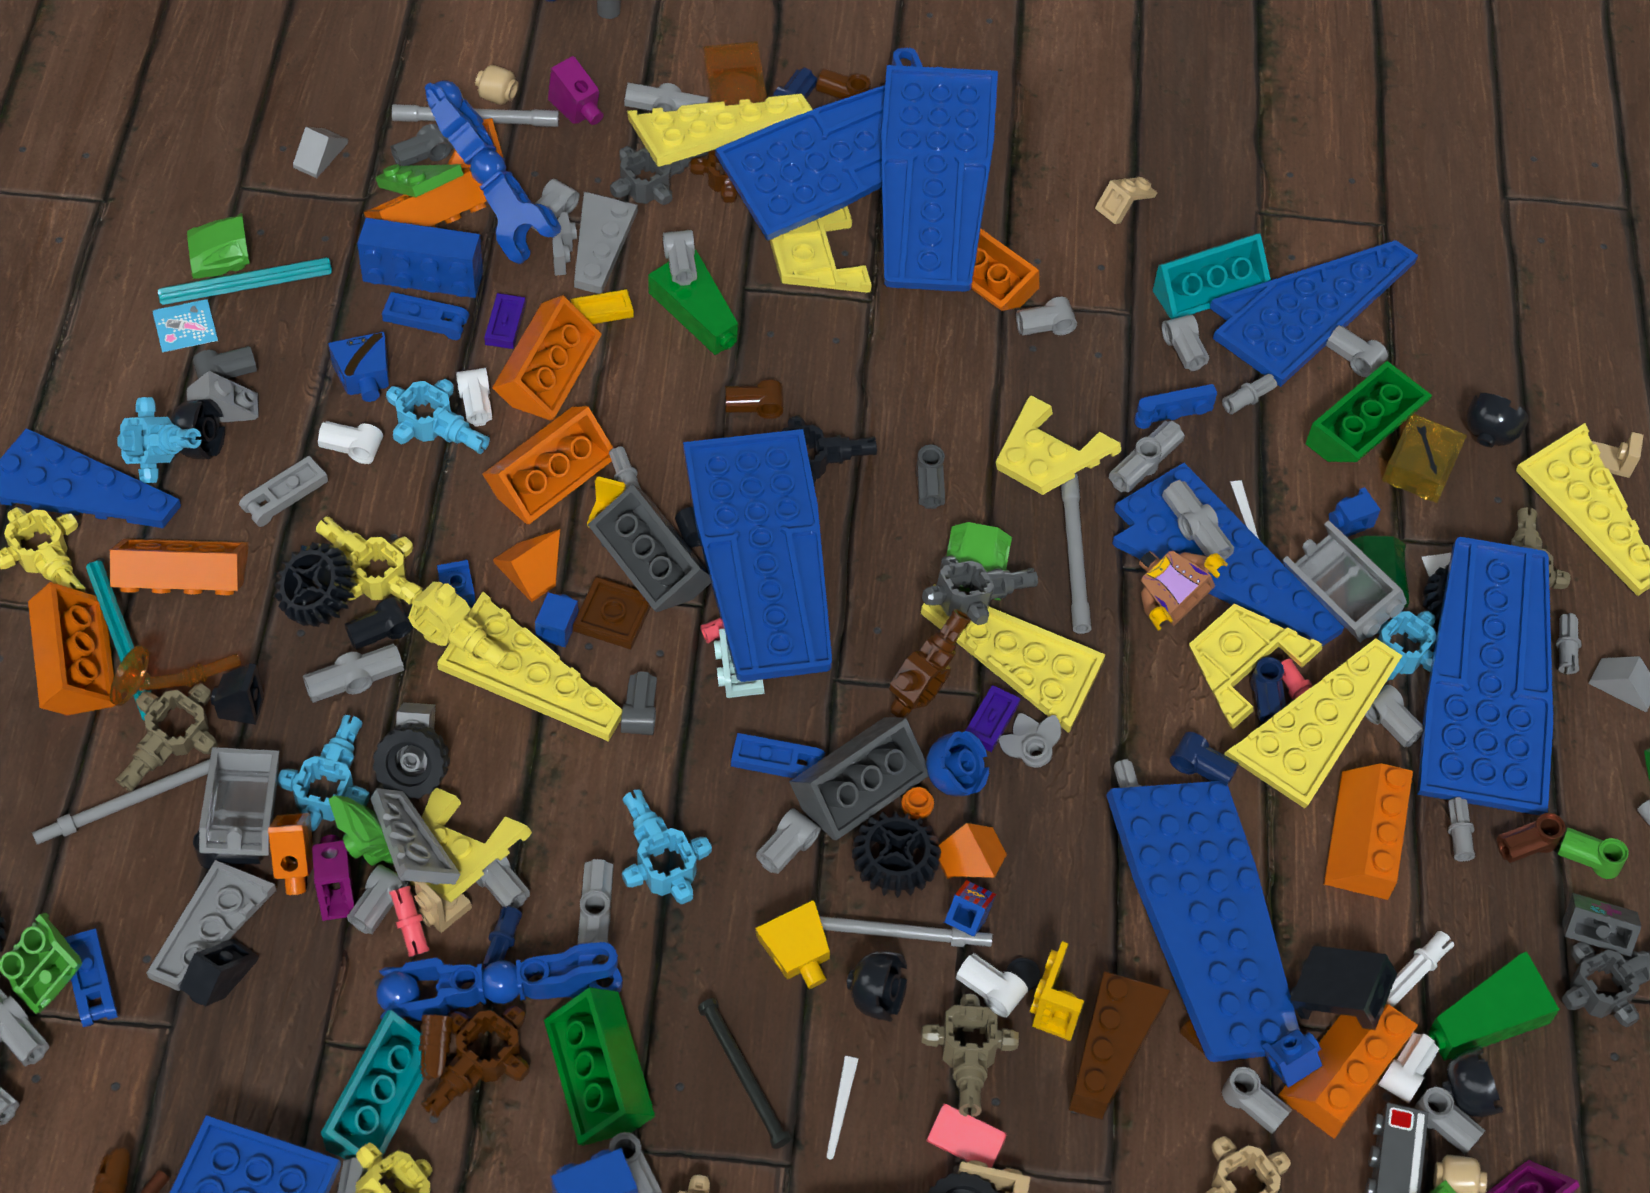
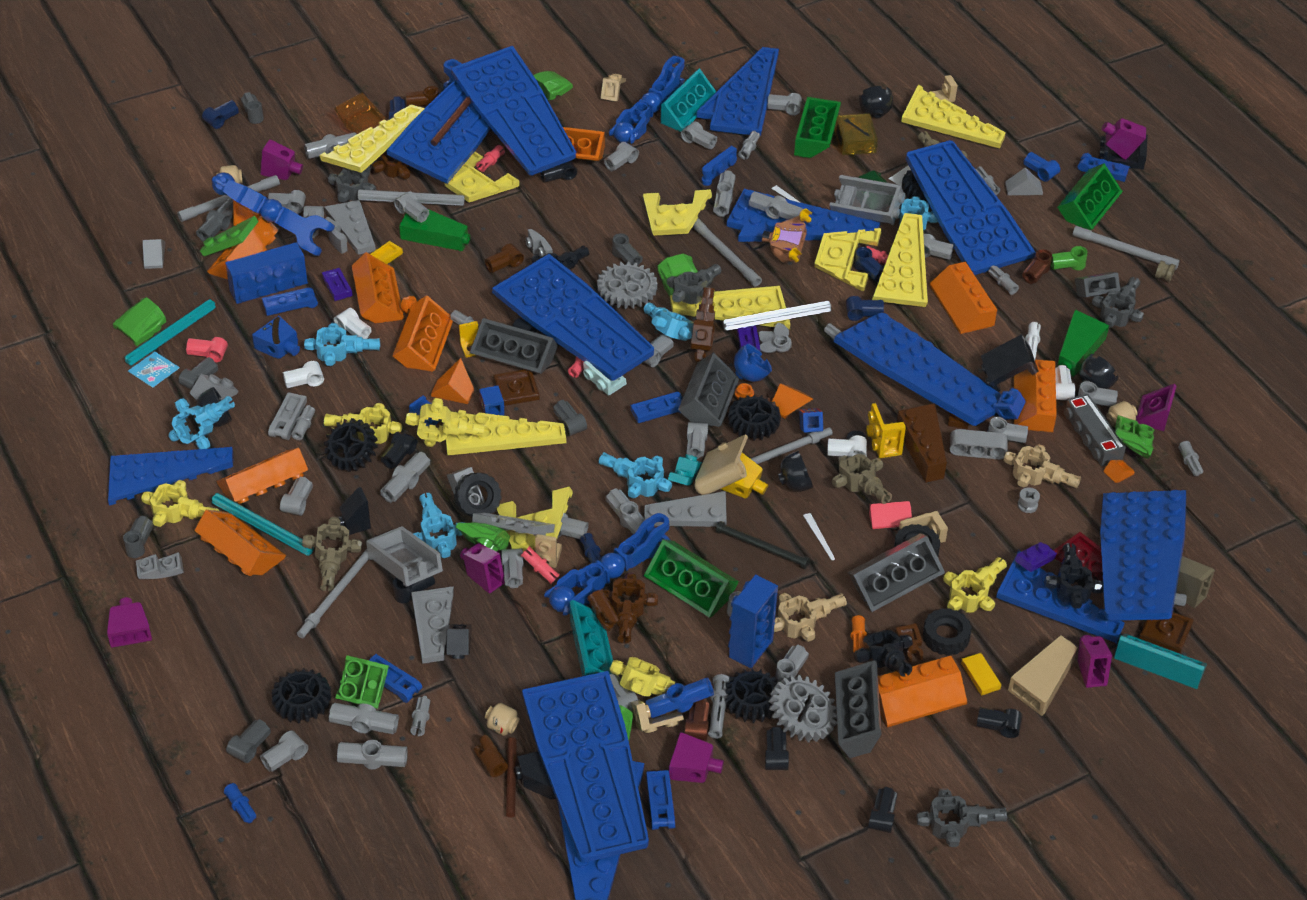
camera: 30 degrees left, 10 degrees down
(78, 1060) = (420, 715): none -> light grey axle
(133, 675) = (296, 530): clear orange dish -> none
(169, 1135) = (502, 719): none -> tan head
(187, 628) = (295, 500): none -> light grey piece
(270, 336) = (214, 349): none -> coral piece
(291, 837) = (454, 564): orange torso -> none
(295, 512) = (303, 422): none -> light grey axle
(547, 162) = (292, 201): none -> light grey piece
(571, 399) = (407, 302): none -> orange plate
(689, 955) = (692, 511): none -> light grey wing
(707, 236) = (424, 198): none -> light grey axle
(732, 886) = (686, 470): none -> teal slope
(770, 914) = (721, 467): none -> tan door
(816, 401) = (537, 243): none -> light grey slope
(832, 148) = (451, 121): none -> copper bar
(849, 661) = (661, 346): none -> light grey piece
(862, 228) = (490, 158): none -> coral pin
(889, 533) = (627, 285): none -> light grey gear
(893, 633) = (669, 322): none -> medium azure piece
(950, 303) = (566, 170): none -> black piece
(1038, 149) = (552, 84): none -> bright green slope
(1058, 704) = (776, 315): none -> axle
(1131, 260) = (649, 103): none -> blue piece
(1194, 1095) = (978, 444): none -> light grey beam
(1355, 513) = (846, 167): blue brick -> none

